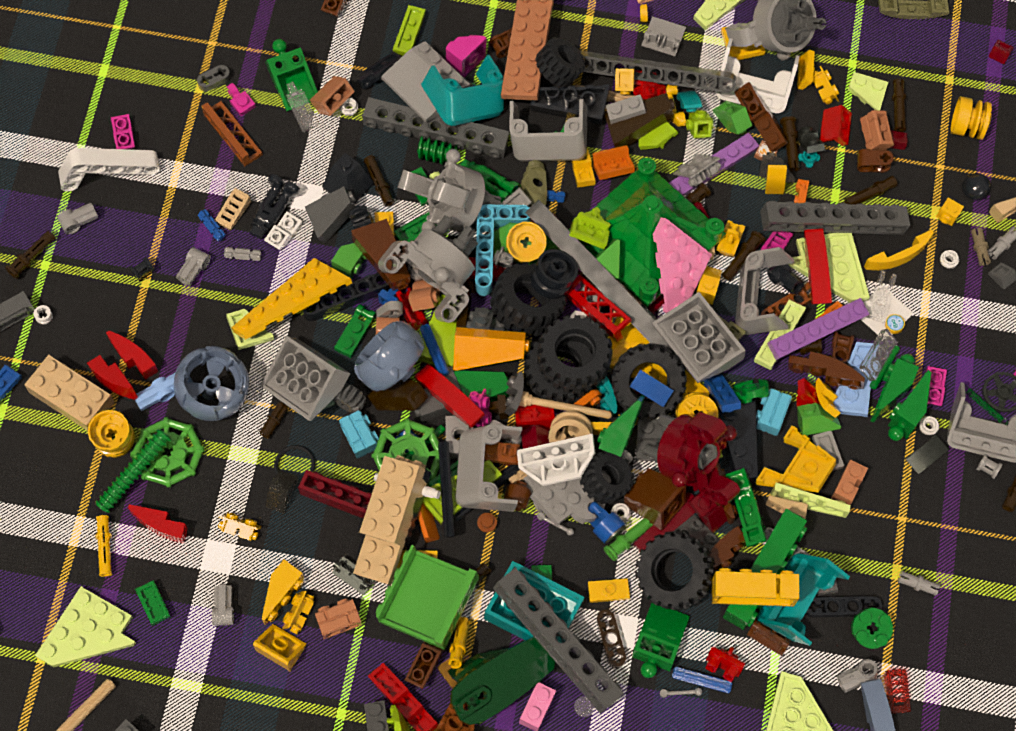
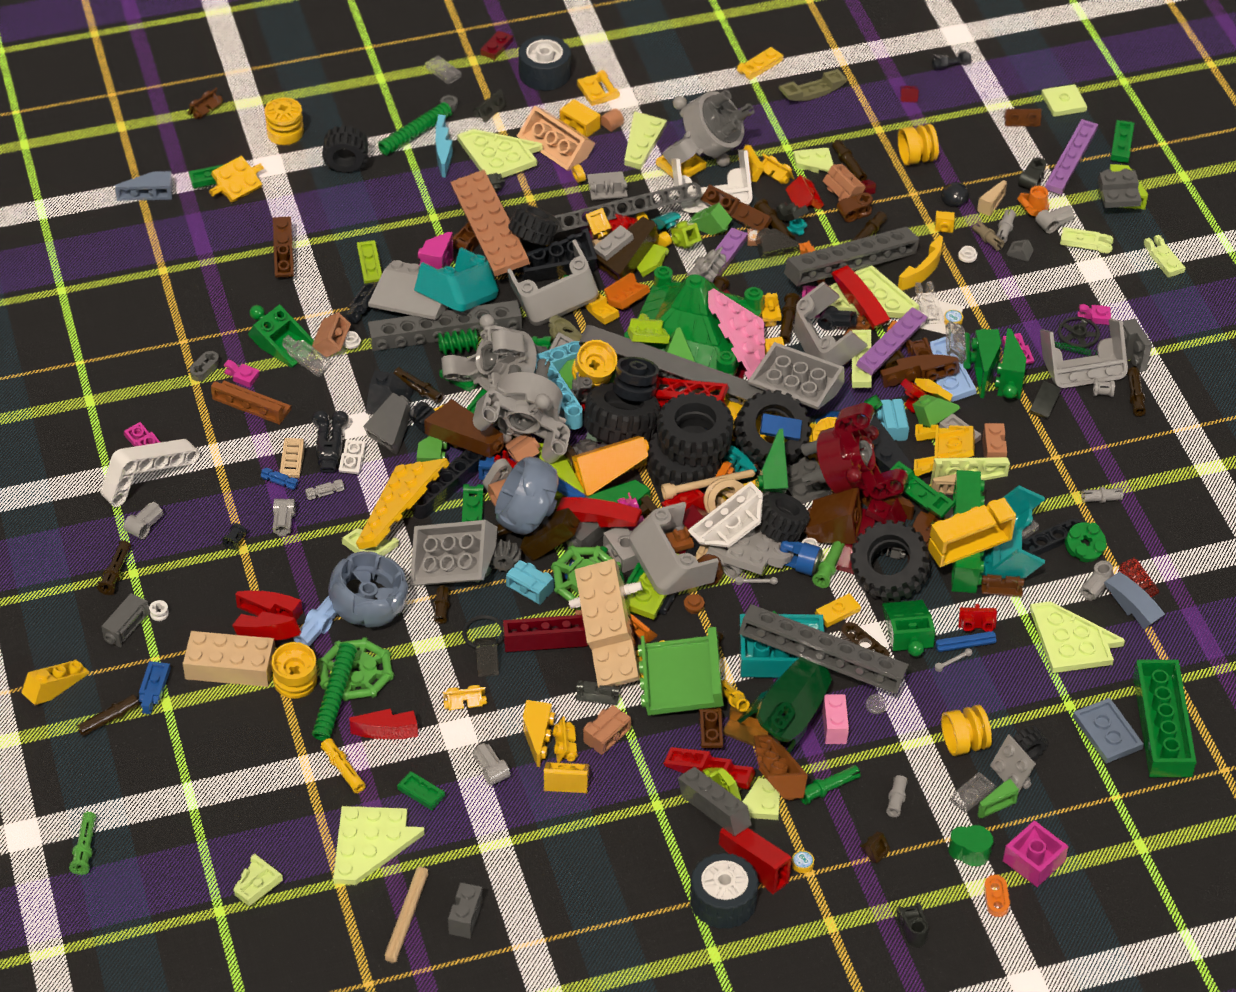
camera: 25 degrees left, 20 degrees down
(446, 489) = (648, 591): black axle -> none
(515, 391) = (657, 487): flat silver slope -> none
(775, 179) = (781, 247): yellow slope -> none
(929, 420) = (1032, 379): white plate -> none

